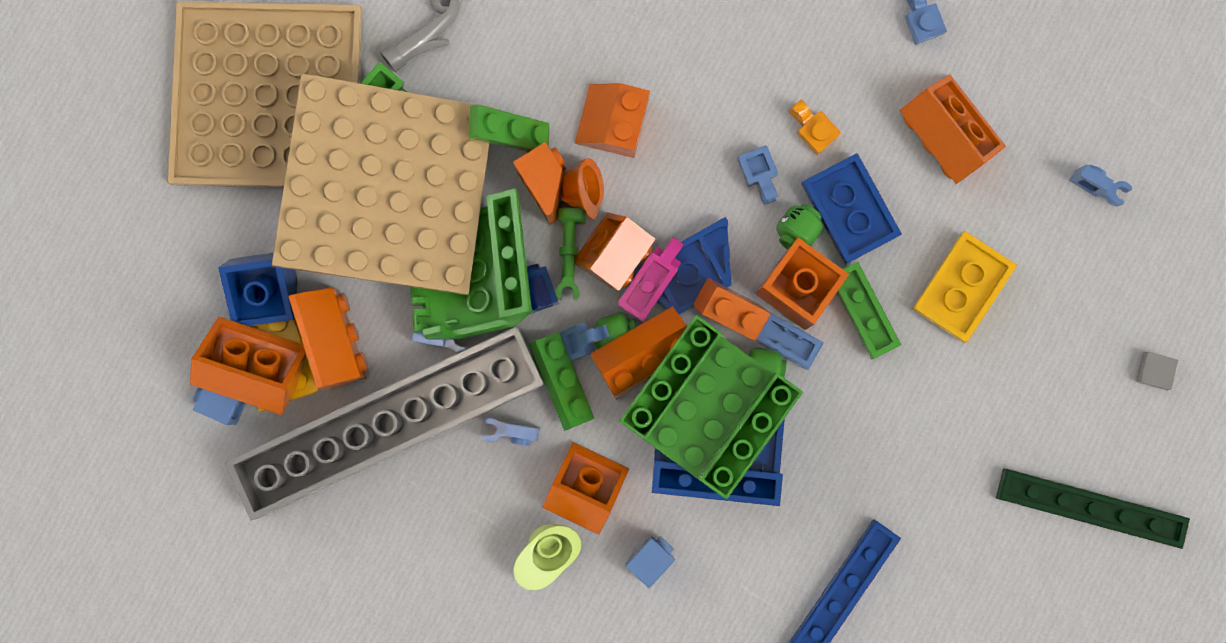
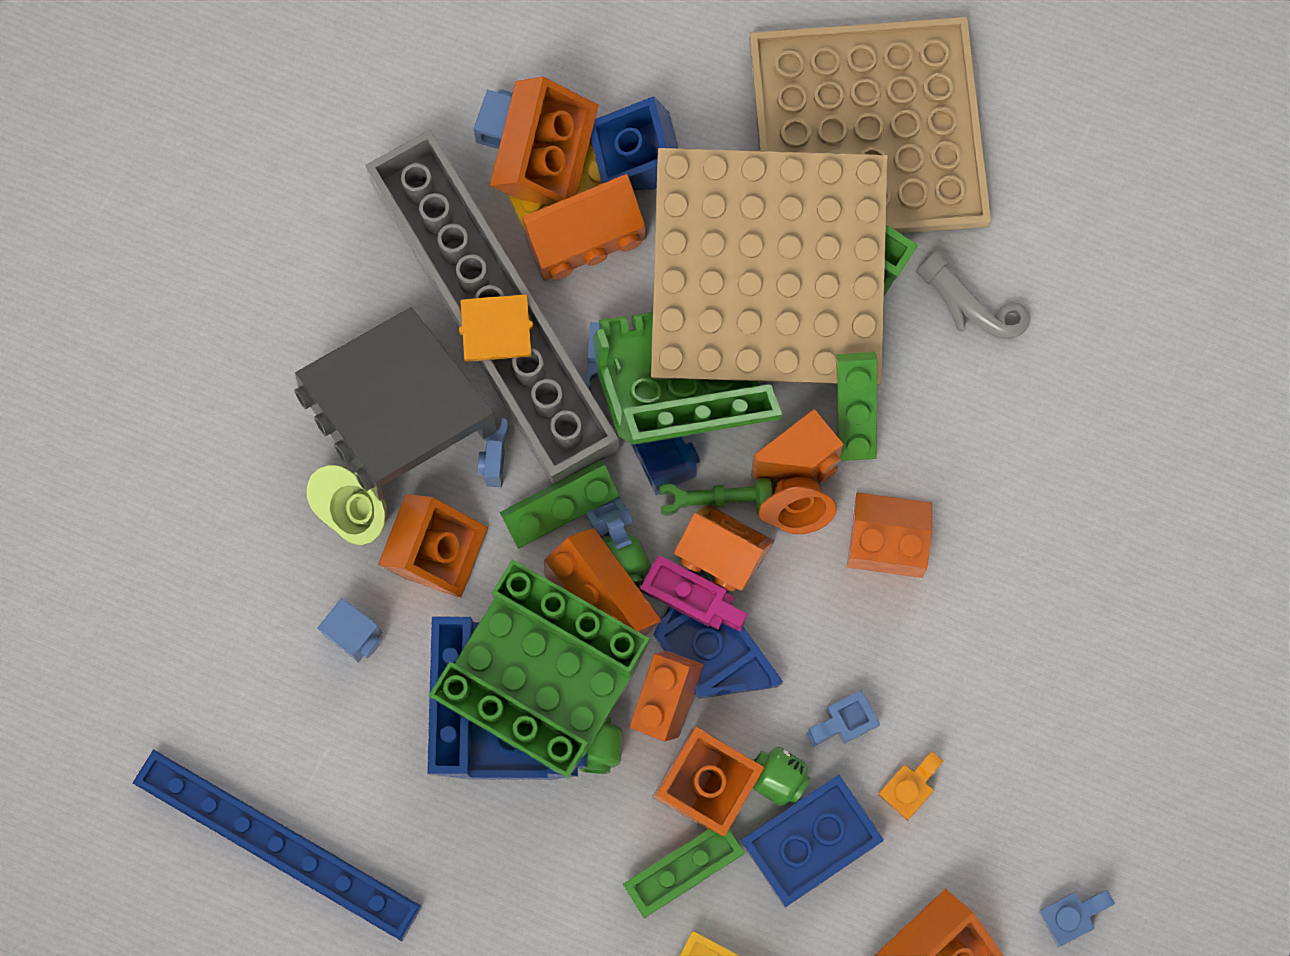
camera: 85 degrees right, 10 degrees down
(410, 419) = (495, 328): none -> light orange piece
(463, 512) = (392, 400): none -> dark grey panel
(789, 341) = (635, 775): medium blue plate -> none

